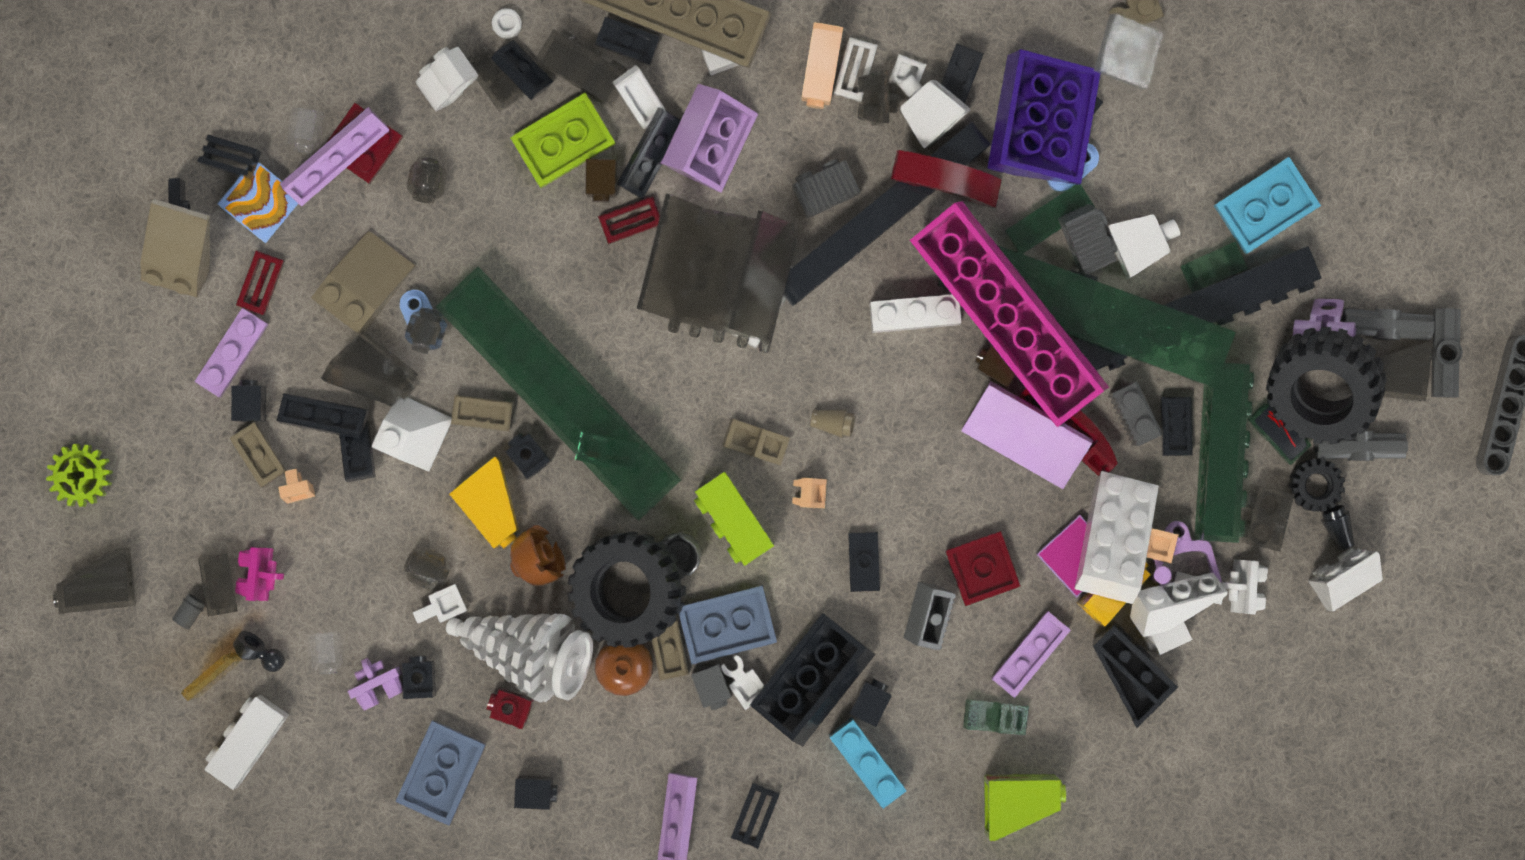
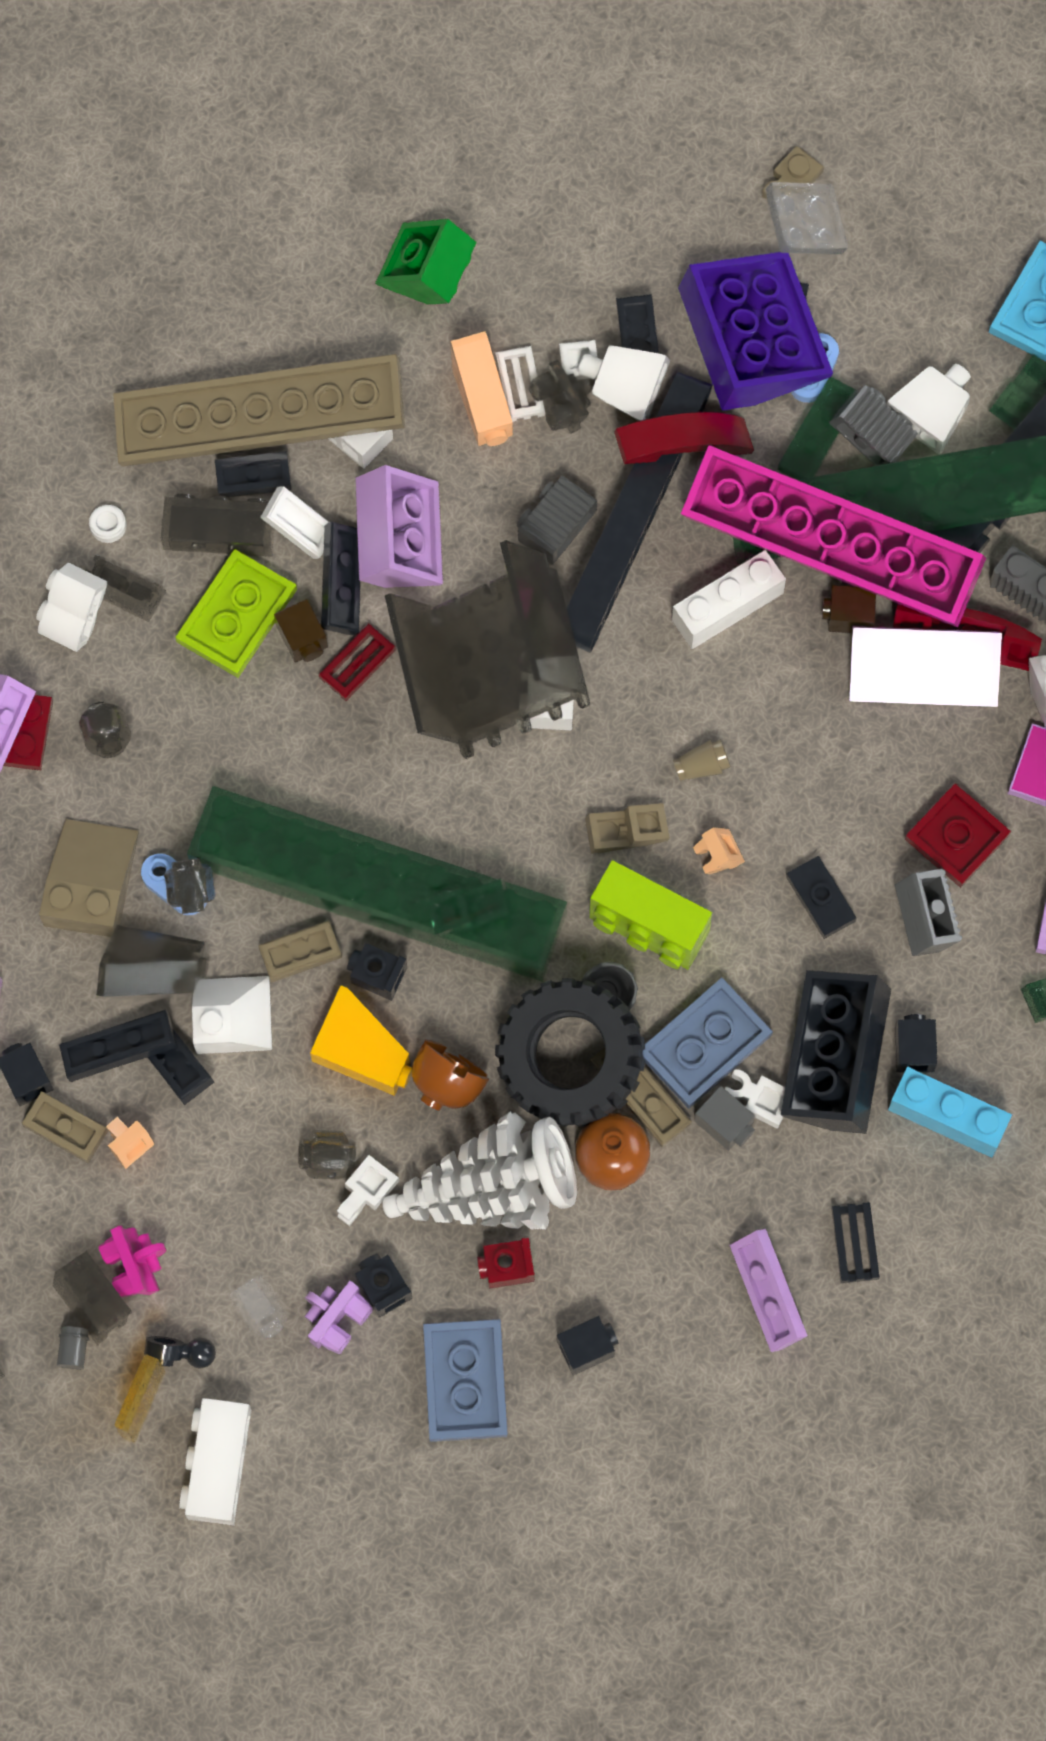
camera: 30 degrees left, 15 degrees down
(522, 69) = (151, 560): black plate -> none

